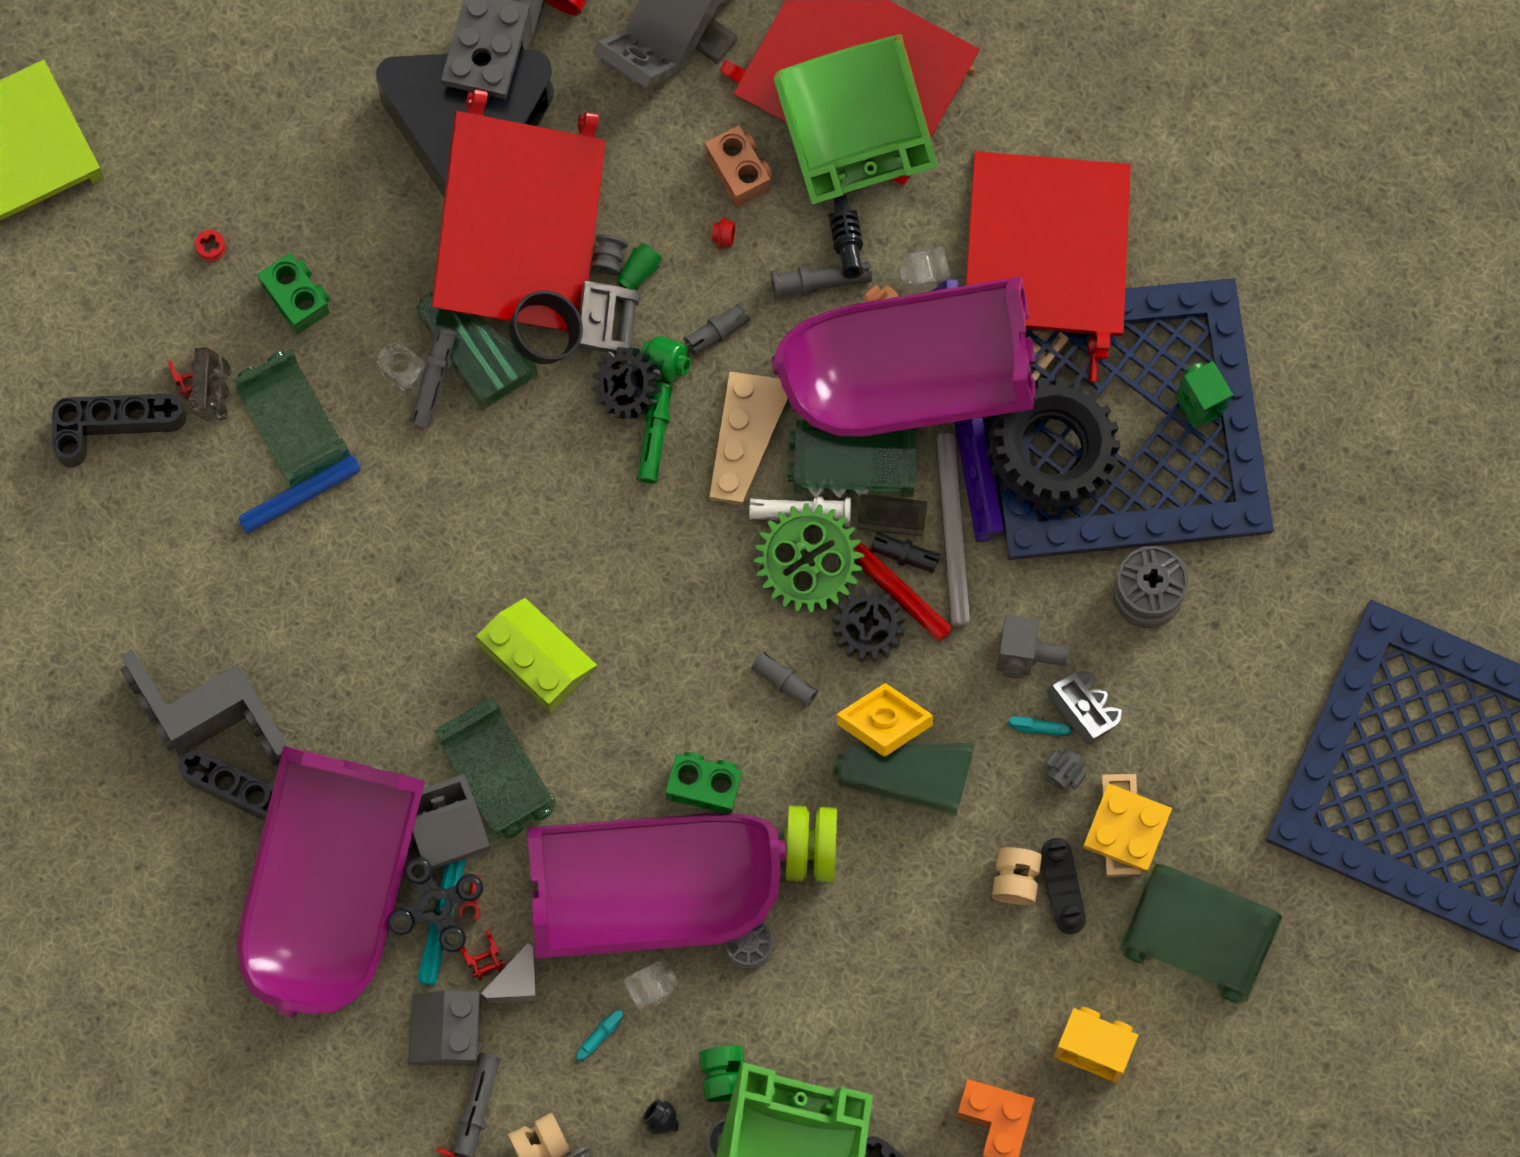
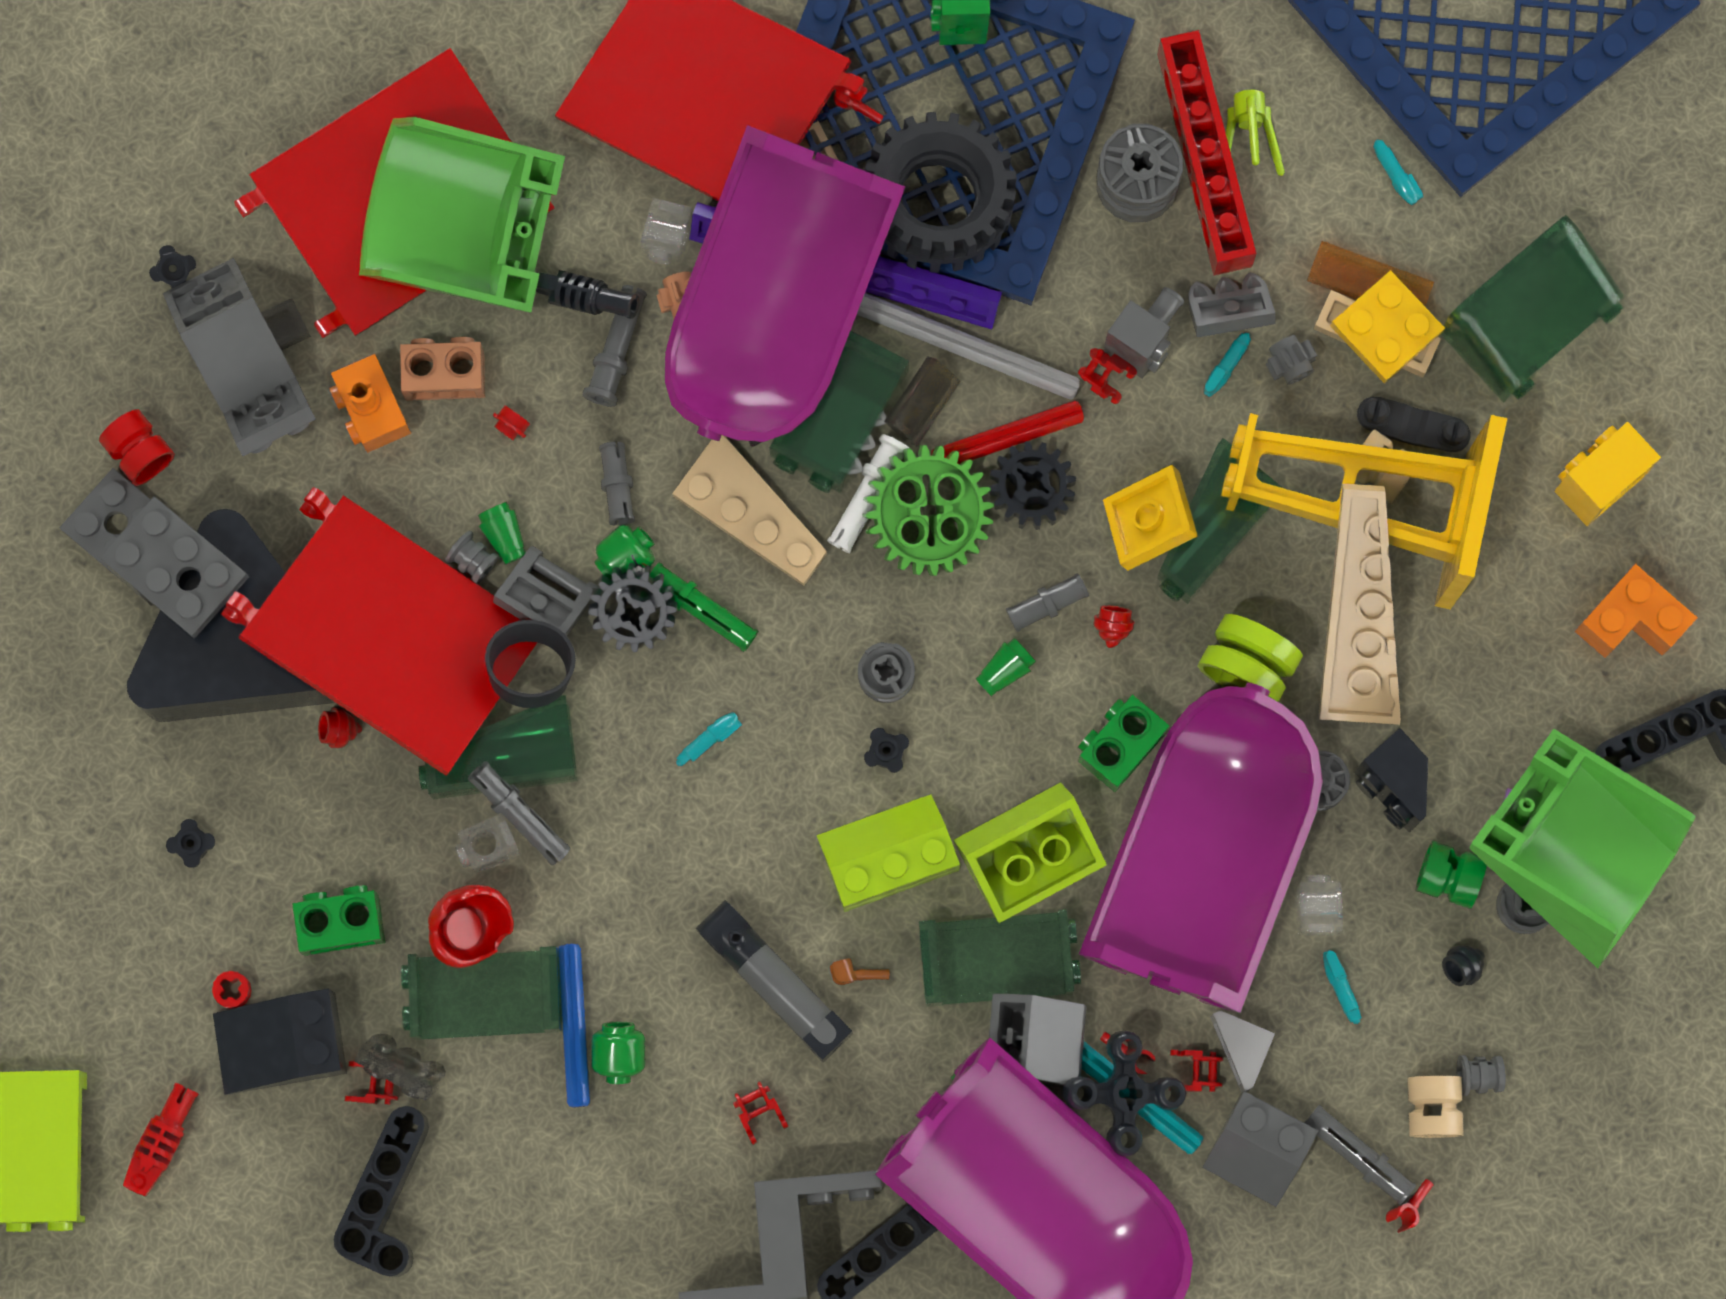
camera: 60 degrees left, 5 degrees up
(77, 250) = (159, 1142): none -> red hinge
(189, 297) = (280, 1042): none -> black slope
(291, 647) = (746, 1118): none -> red piece
(293, 532) = (618, 1052): none -> green head
(305, 174) = (202, 843): none -> black plate
(333, 381) = (469, 925): none -> red piece
(416, 575) = (774, 981): none -> piece
(431, 666) = (844, 973): none -> dark orange hand
(432, 223) = (337, 728): none -> red plate
(567, 490) = (716, 732): none -> teal piece
(586, 754) = (1030, 852): none -> lime slope
(610, 625) = (891, 761): none -> black plate
(671, 587) = (886, 672): none -> dark grey wheel
(686, 127) = (370, 403): none -> orange brick
(720, 672) = (1005, 667): none -> green cone
(777, 997) = (1398, 778): none -> black slope
(793, 735) = (1113, 624): none -> red plate
(868, 916) = (1360, 637): none -> tan wing
(905, 552) = (968, 408): black pin -> none
(974, 638) = (1099, 383): none -> red piece
(1002, 947) = (1469, 477): none -> yellow piece
(1159, 785) = (1355, 274): none -> clear orange plate
(1193, 629) = (1206, 153): none -> red brick
(1244, 649) = (1250, 113): none -> lime plant
(1253, 790) = (1402, 182): none -> teal piece

